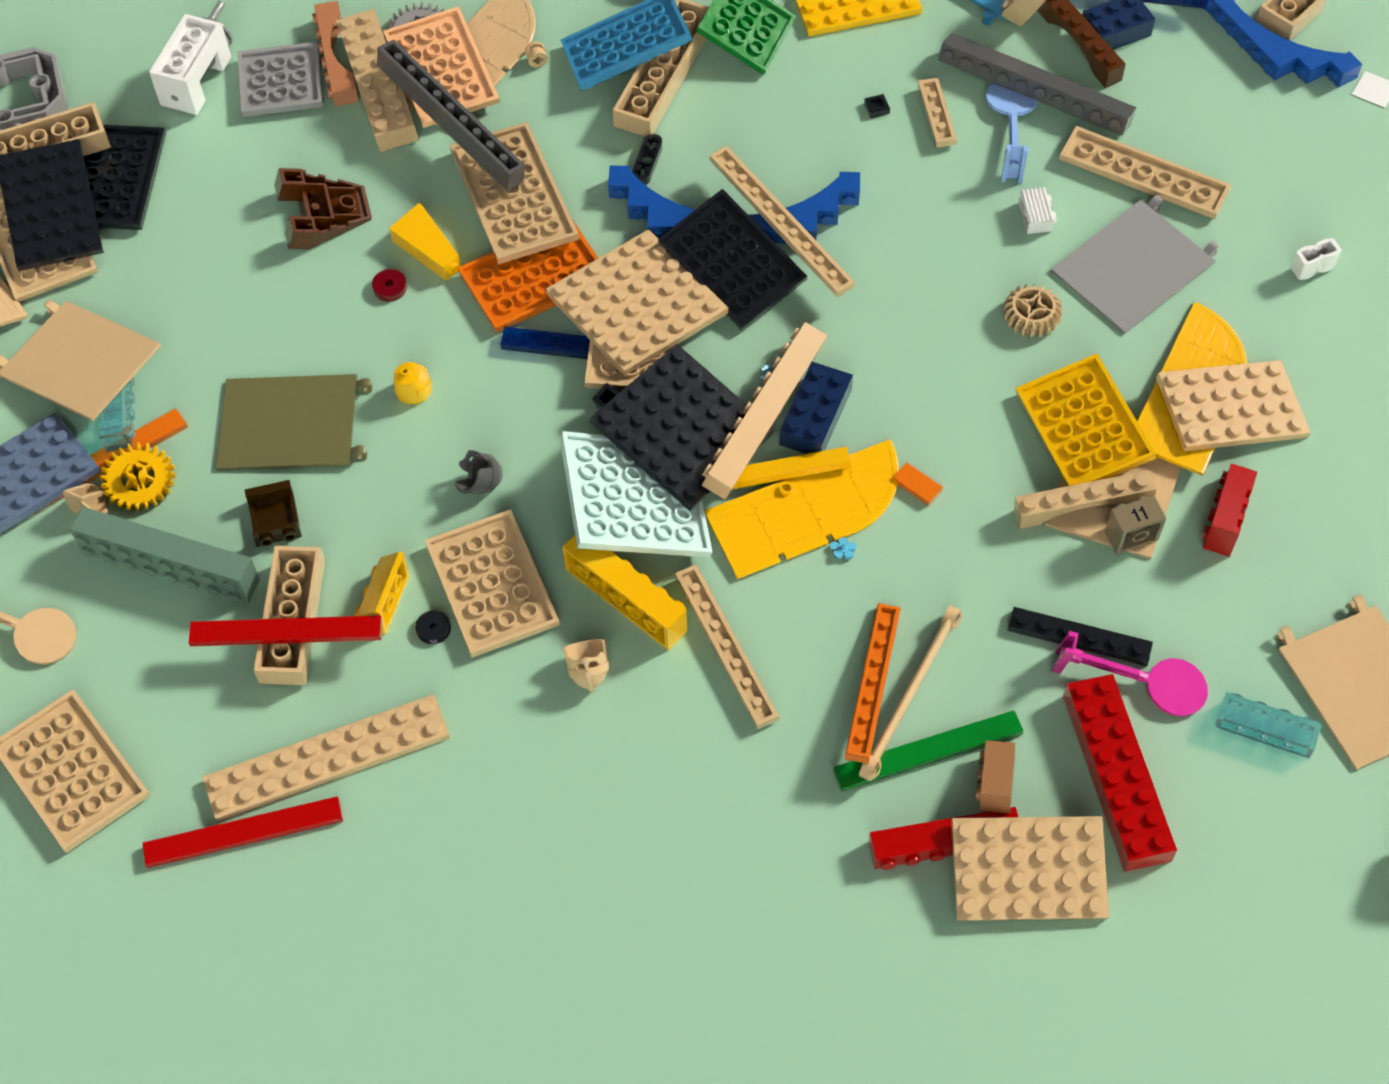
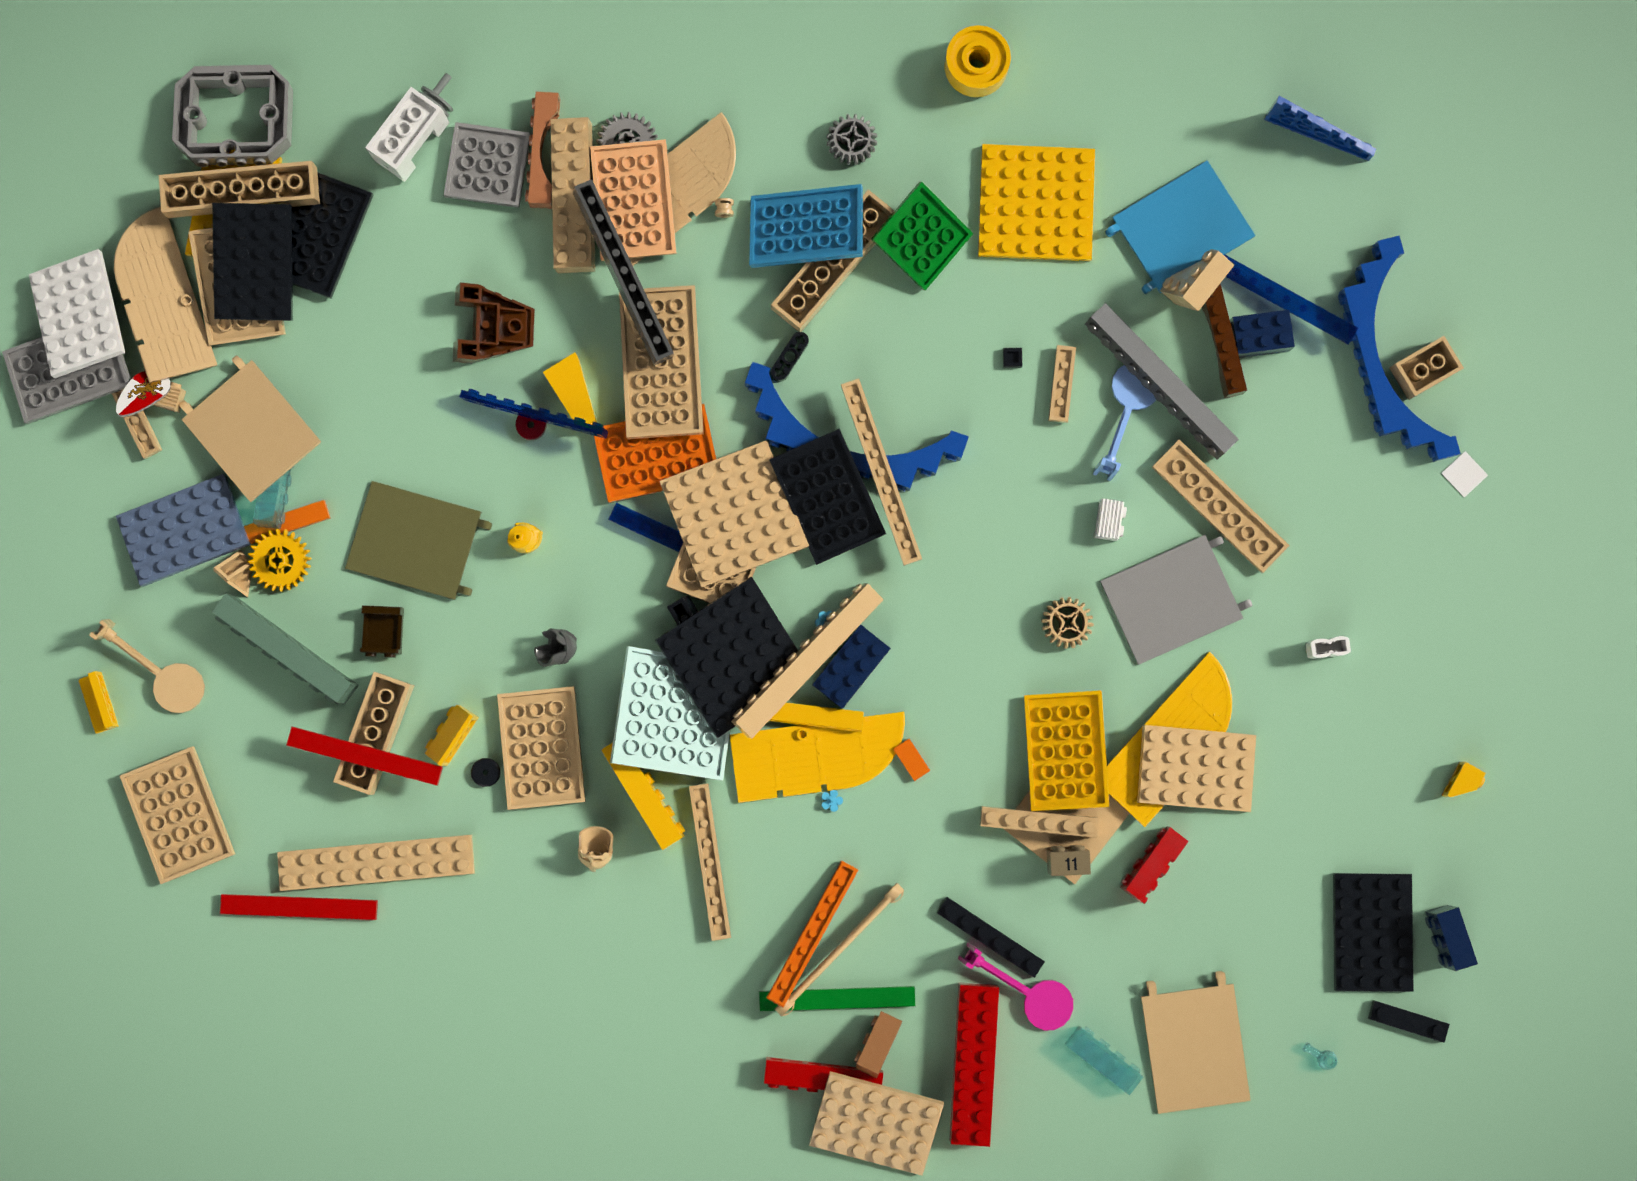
camera: 10 degrees right, 25 degrees up
(390, 264) = (542, 414): none -> clear blue plate

